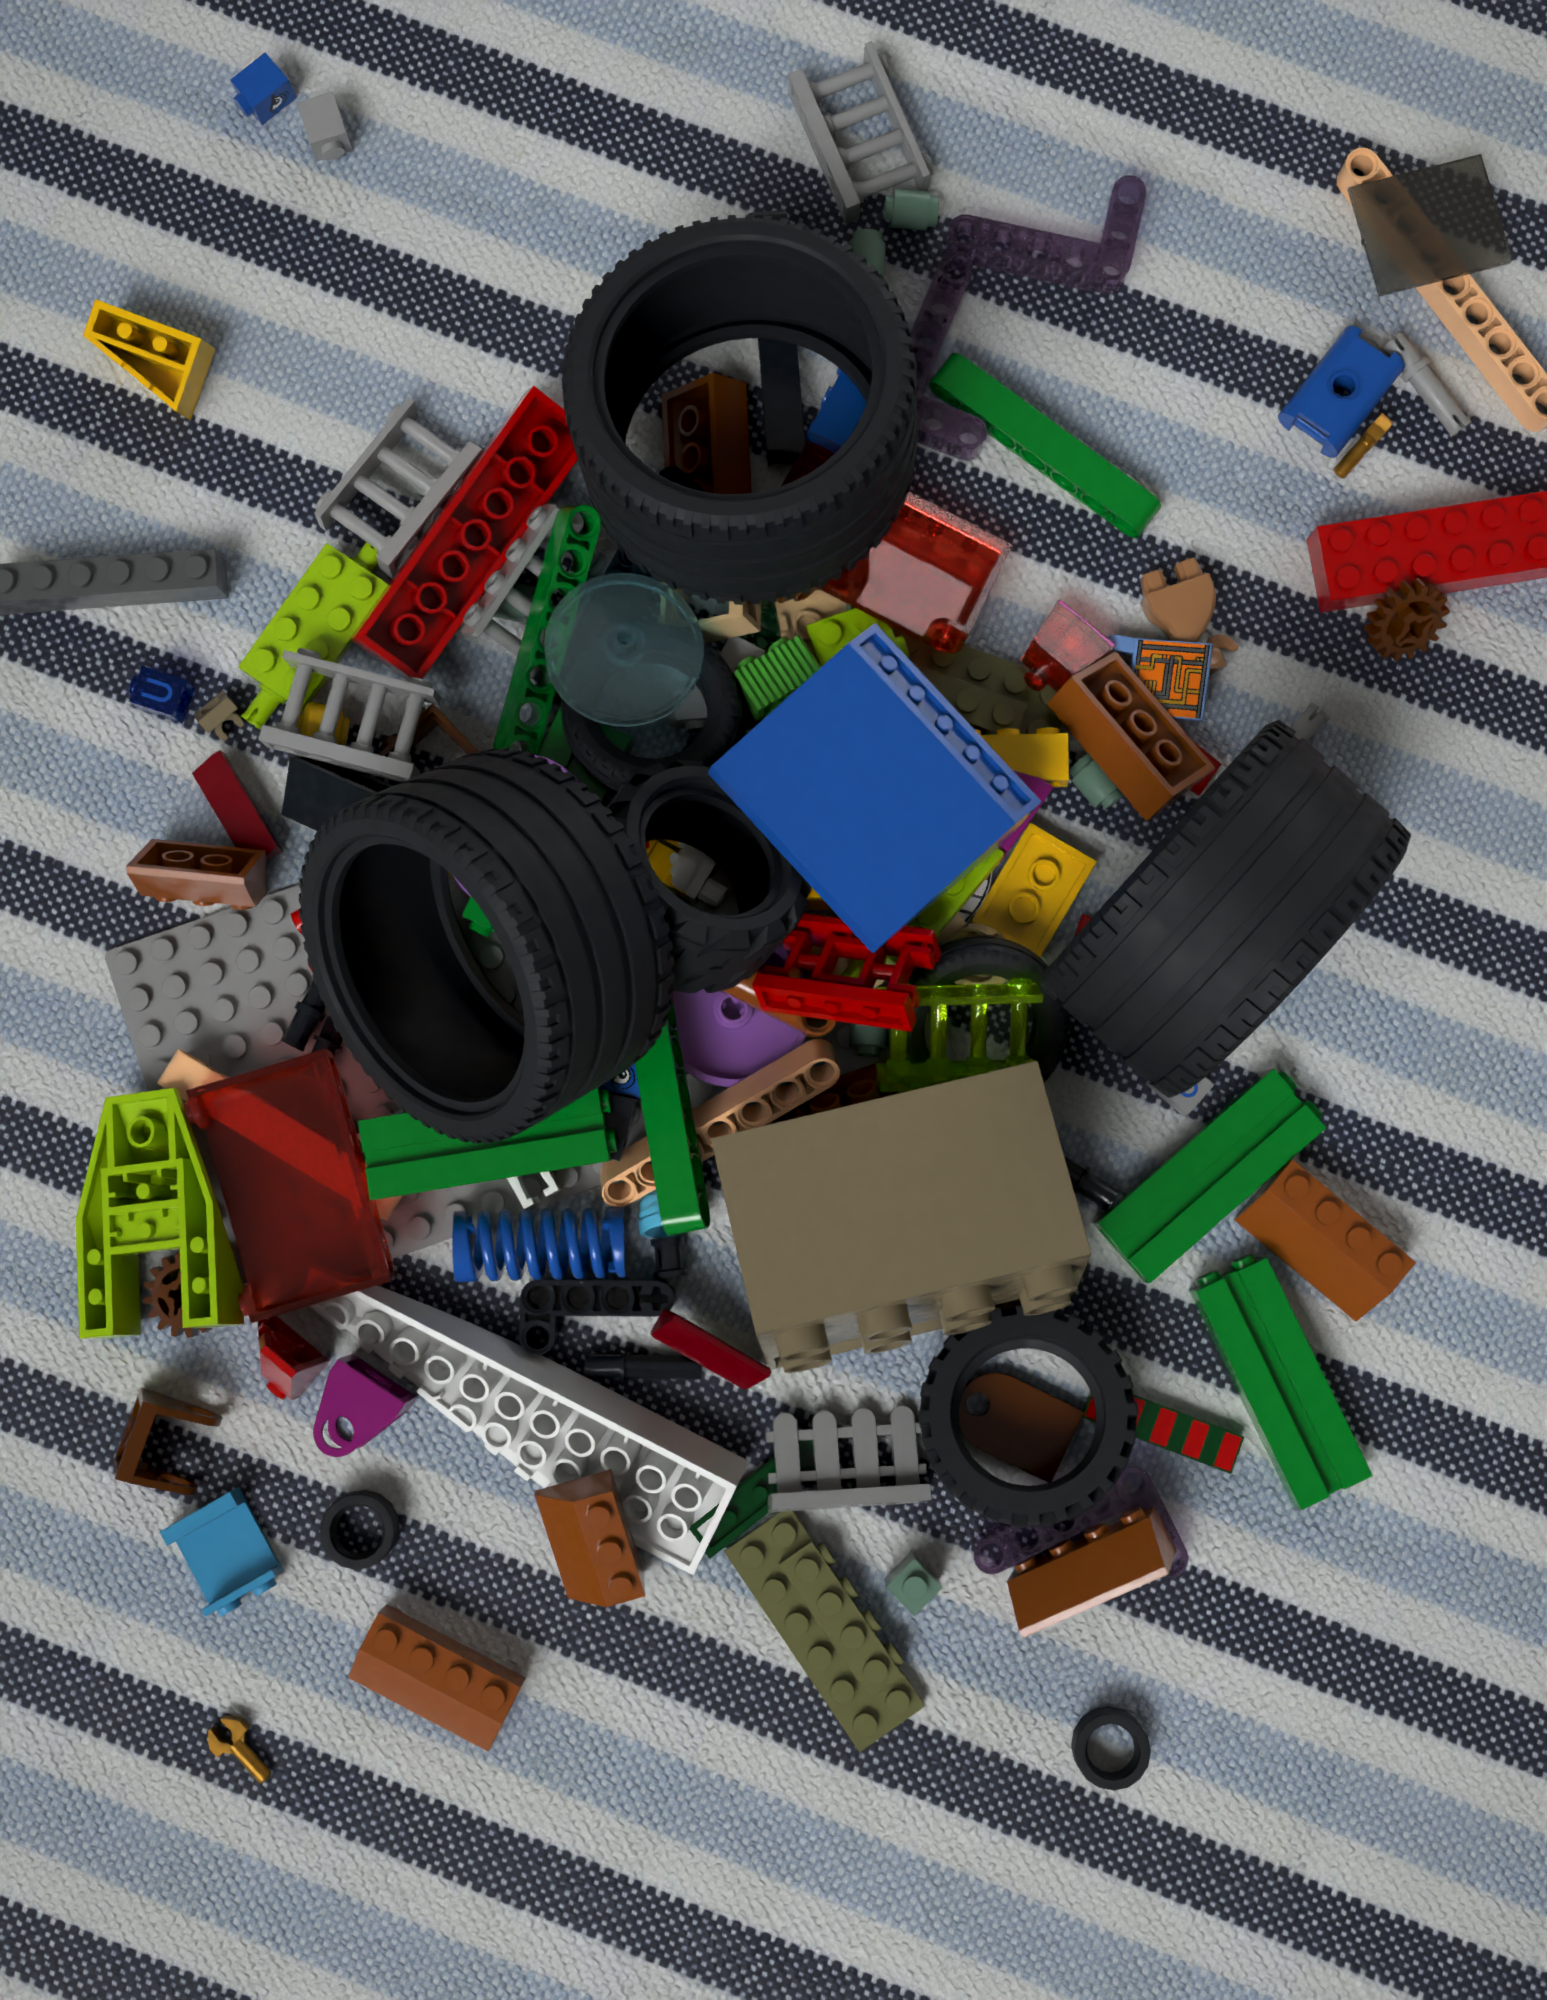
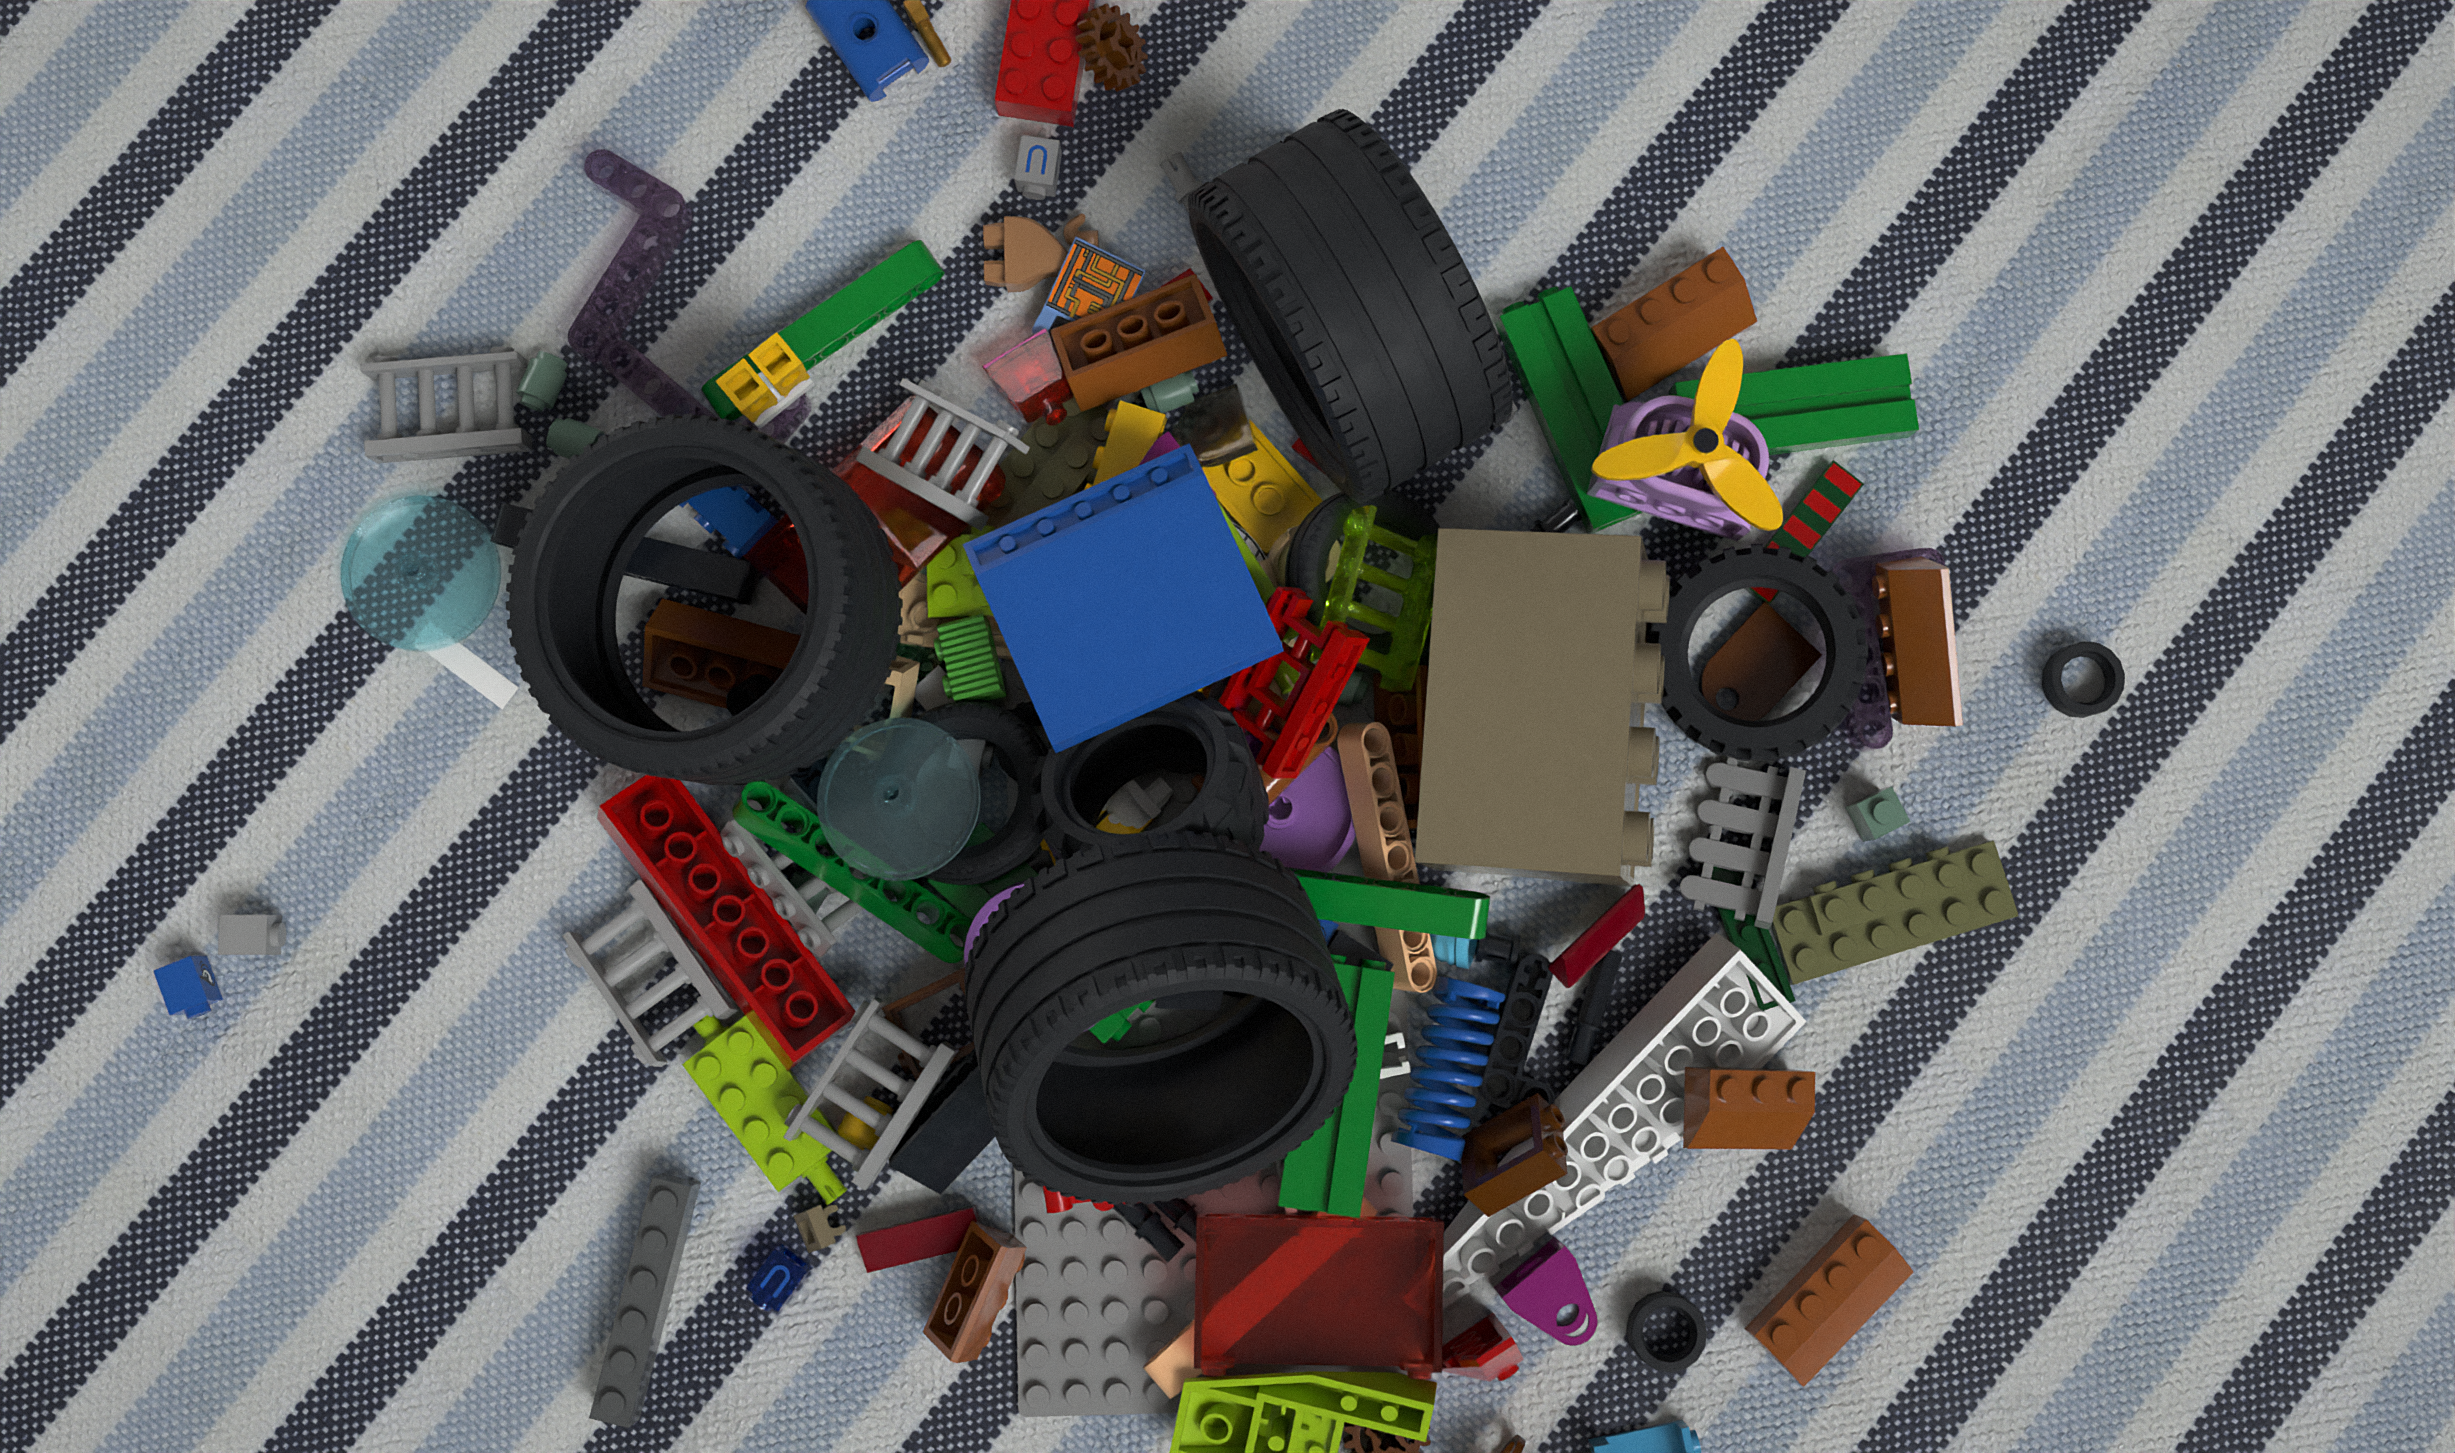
camera: 75 degrees left, 0 degrees up
(155, 354) = (430, 1178): yellow wedge -> none
(442, 1318) = (1497, 1187): none -> reddish brown window
(632, 223) = (476, 673): none -> white sticker
(698, 159) = (454, 580): none -> clear light blue dish
(932, 565) = (938, 488): none -> light grey fence
(971, 411) = (774, 388): none -> yellow hips
(1074, 835) = (1216, 427): none -> clear smoke tile
(1195, 1288) = (1691, 457): none -> brick
(1268, 590) = (1038, 167): none -> light grey brick

